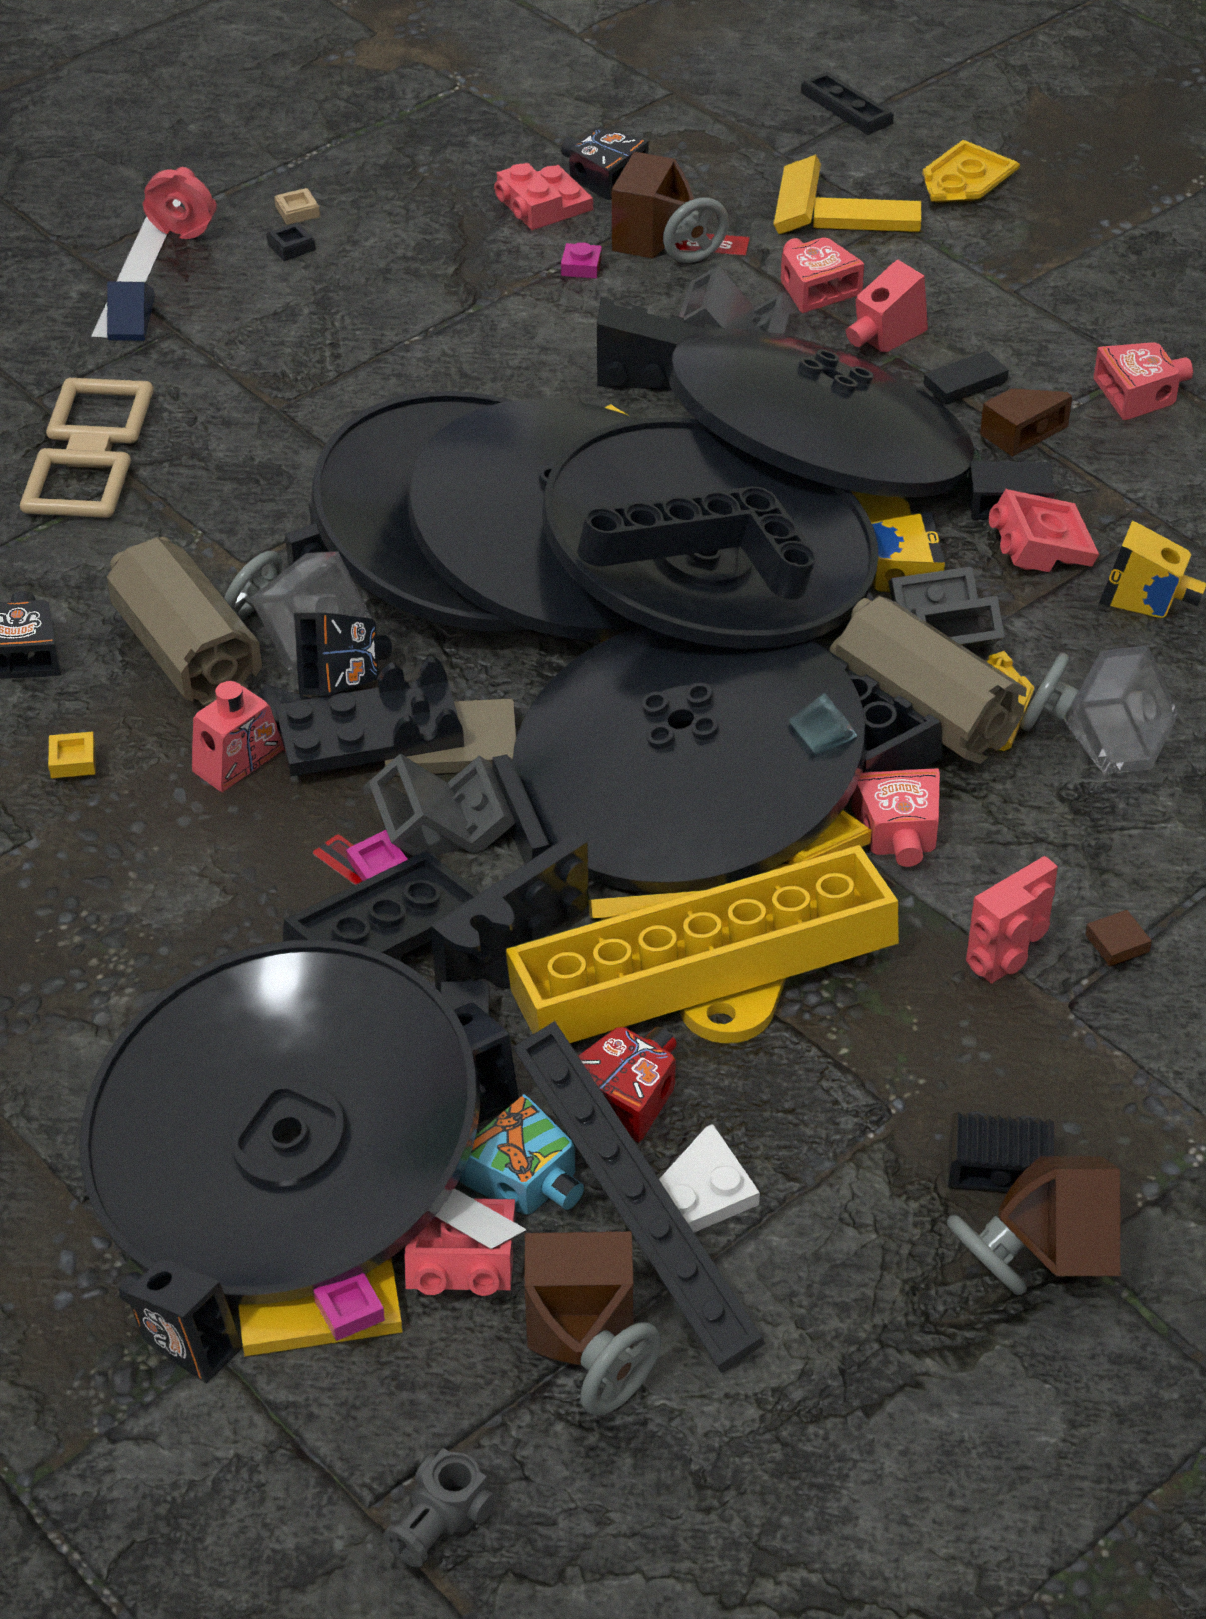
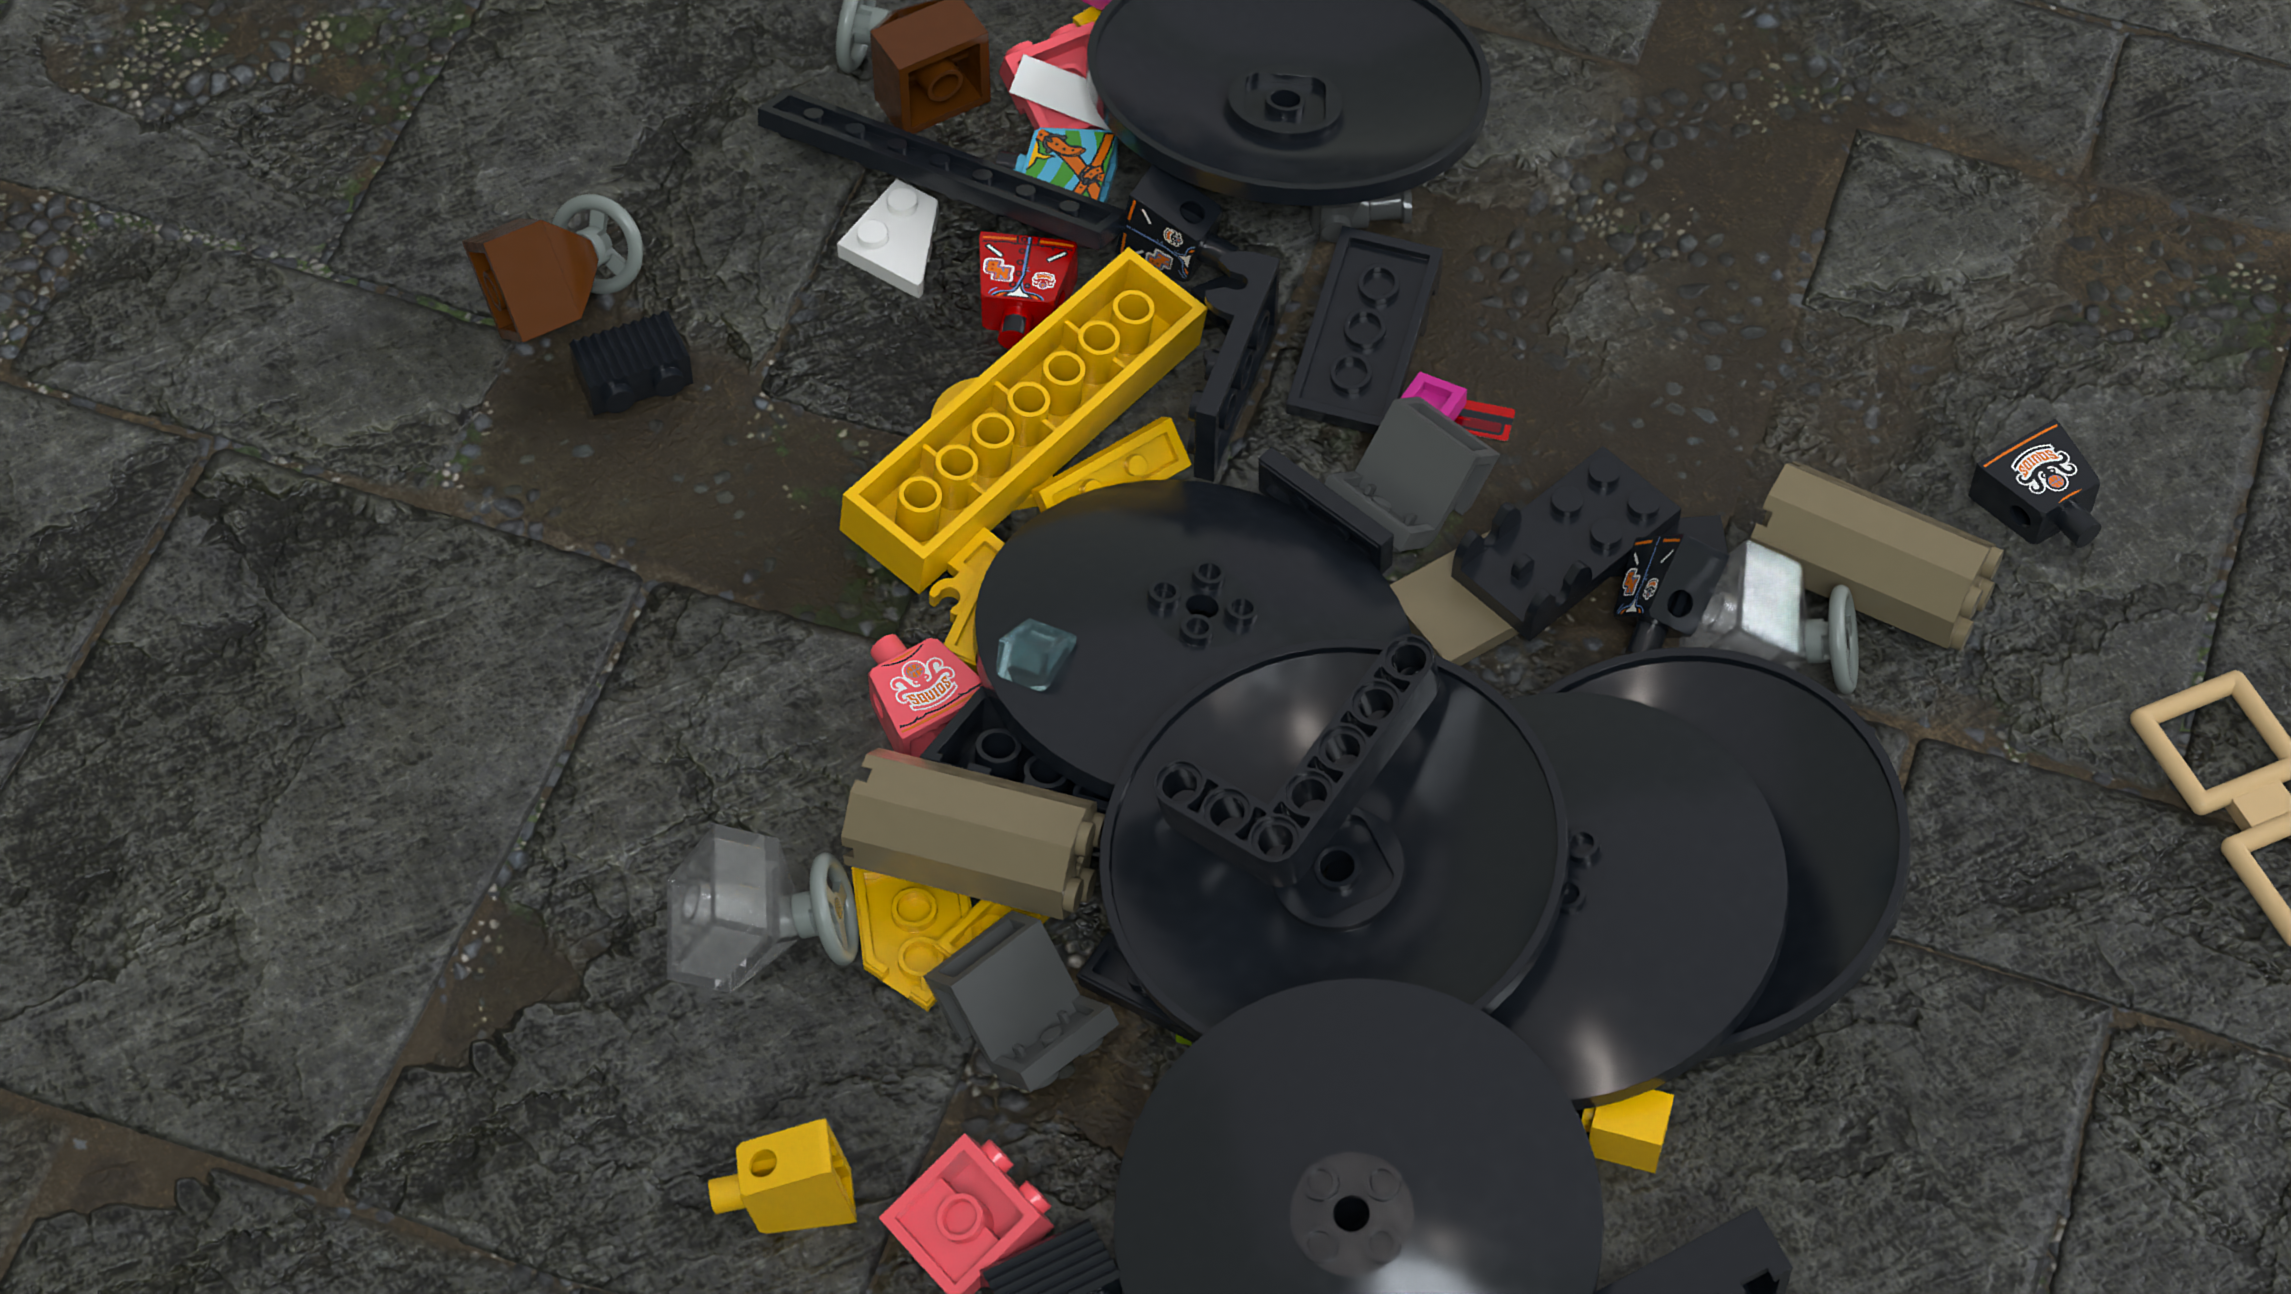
camera: 150 degrees right, 10 degrees up
(71, 754) = (1844, 383): yellow plate -> none
(233, 736) = (1690, 440): coral torso -> none
(906, 548) = (1112, 1084): yellow torso -> none
(1010, 918) = (731, 579): coral plate -> none
(1118, 937) = (619, 665): reddish brown tile -> none

